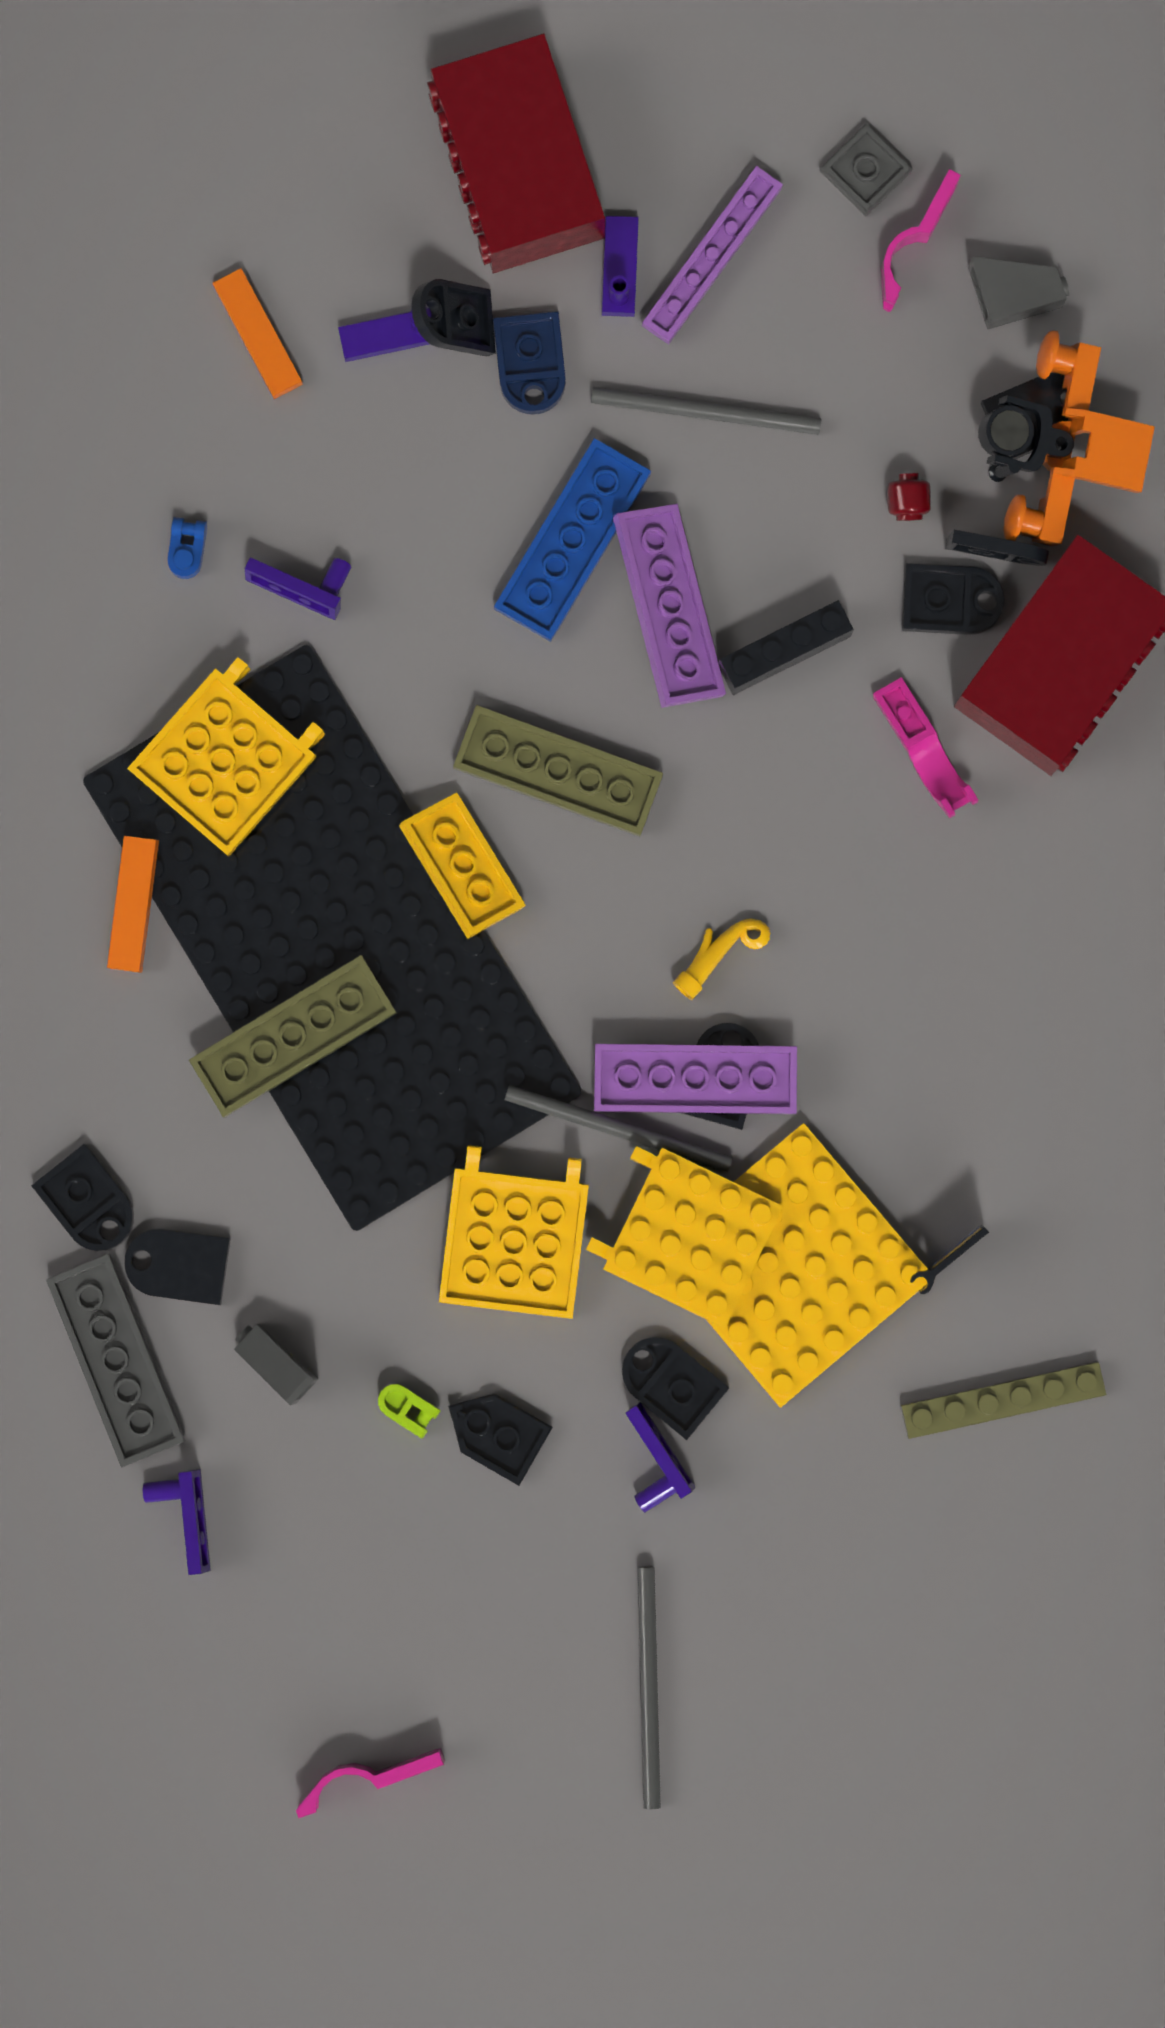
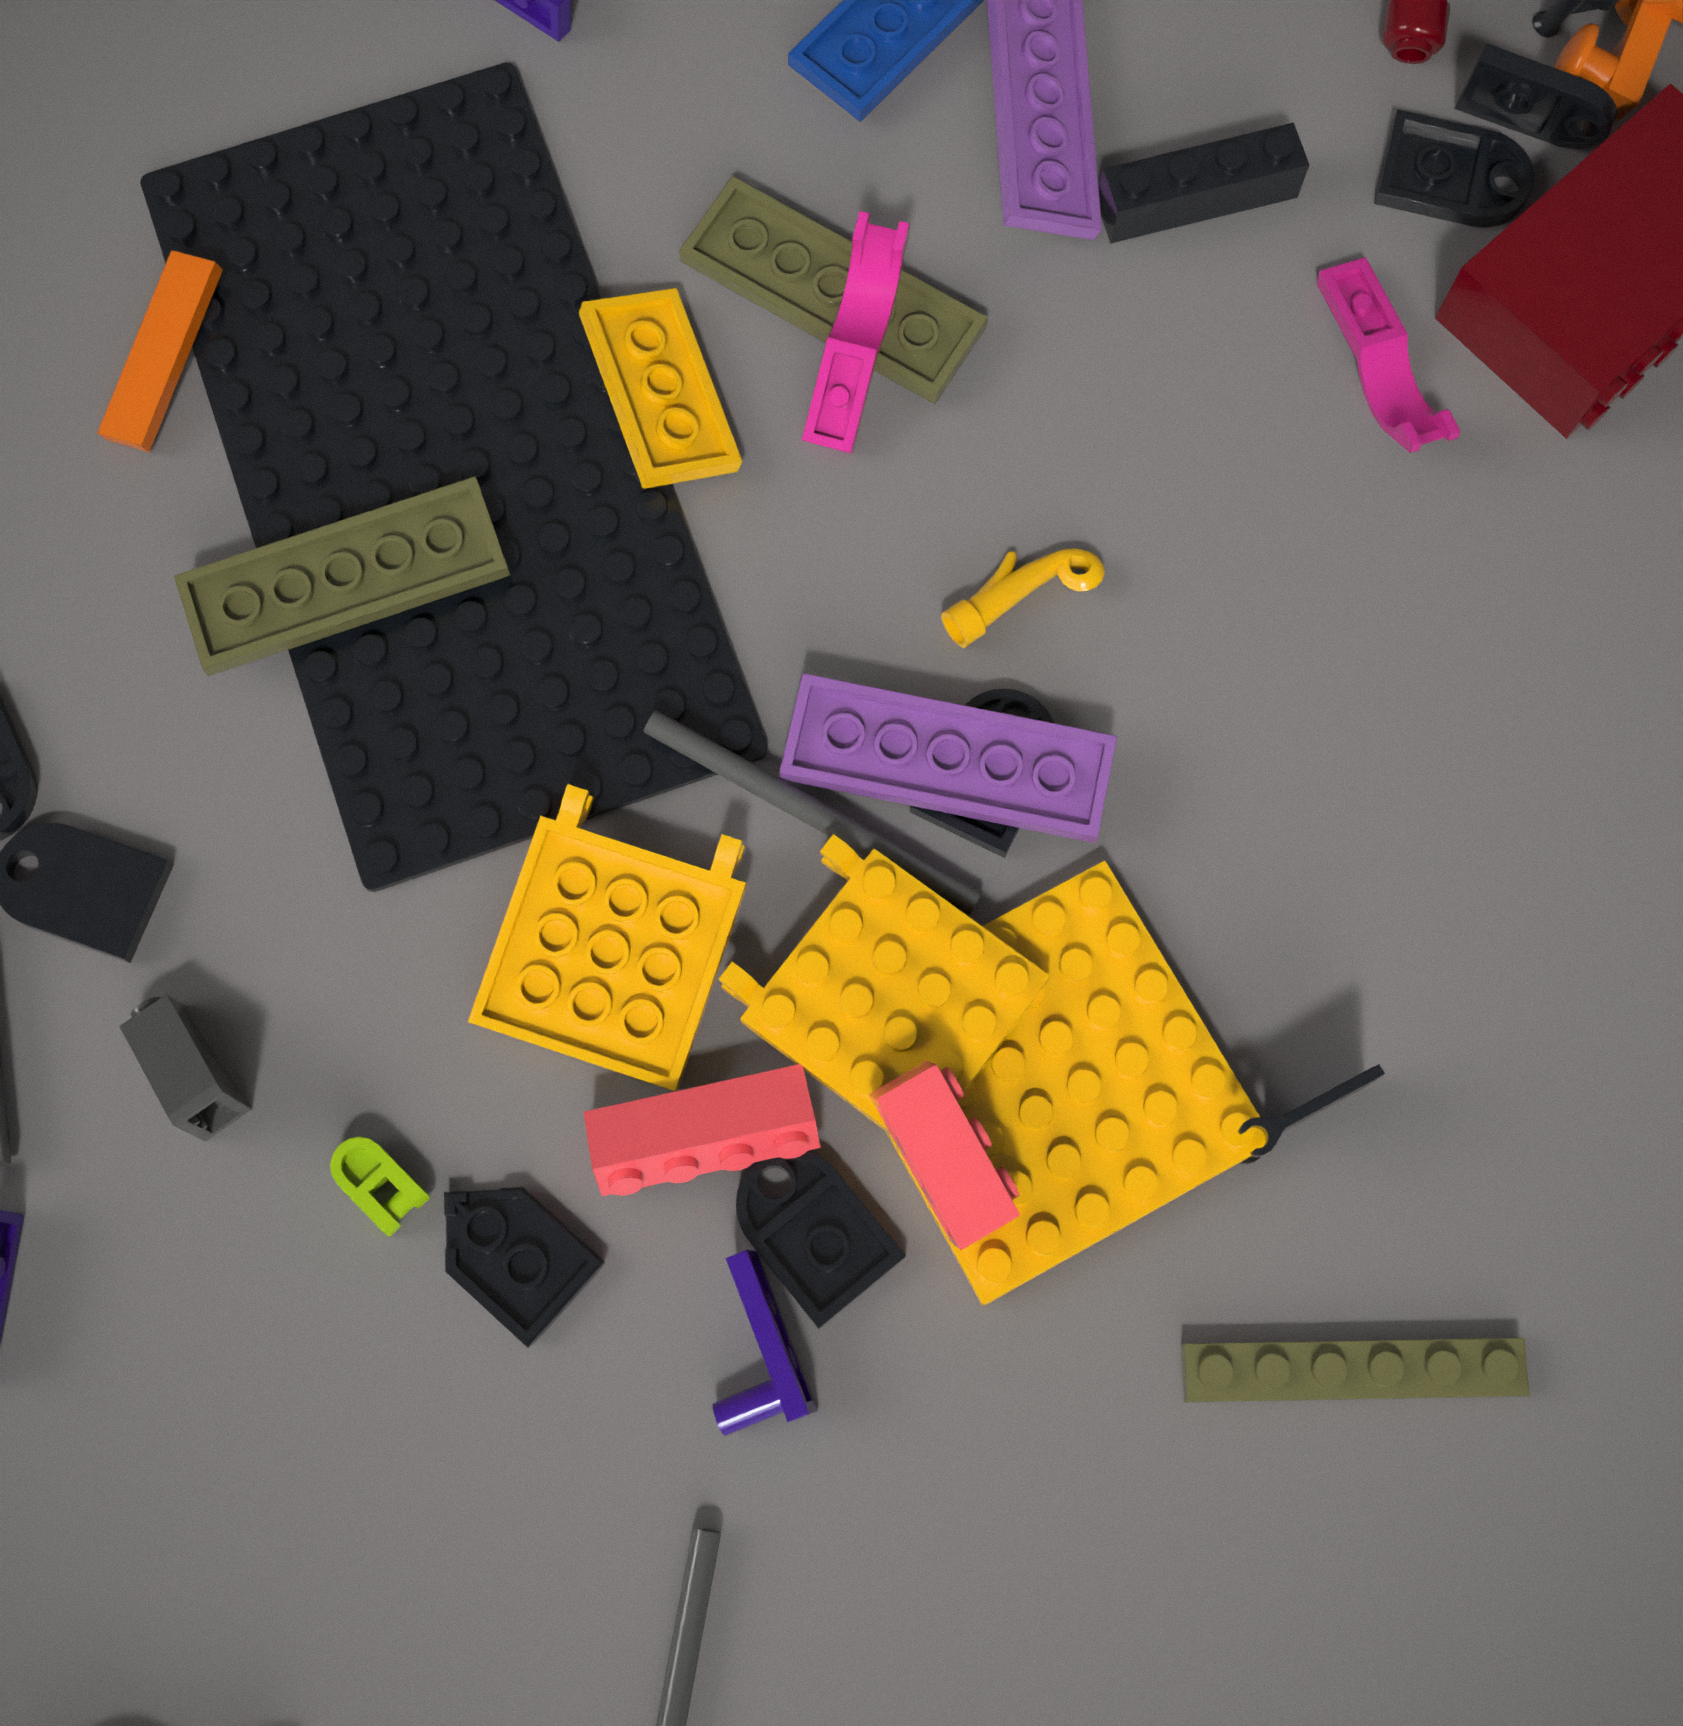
camera: 10 degrees right, 10 degrees down
(224, 759) = (348, 176): yellow plate -> none
(581, 809) = (856, 335): none -> dark pink piece
(594, 1340) = (701, 1130): none -> coral brick
(742, 1327) = (947, 1153): none -> coral brick

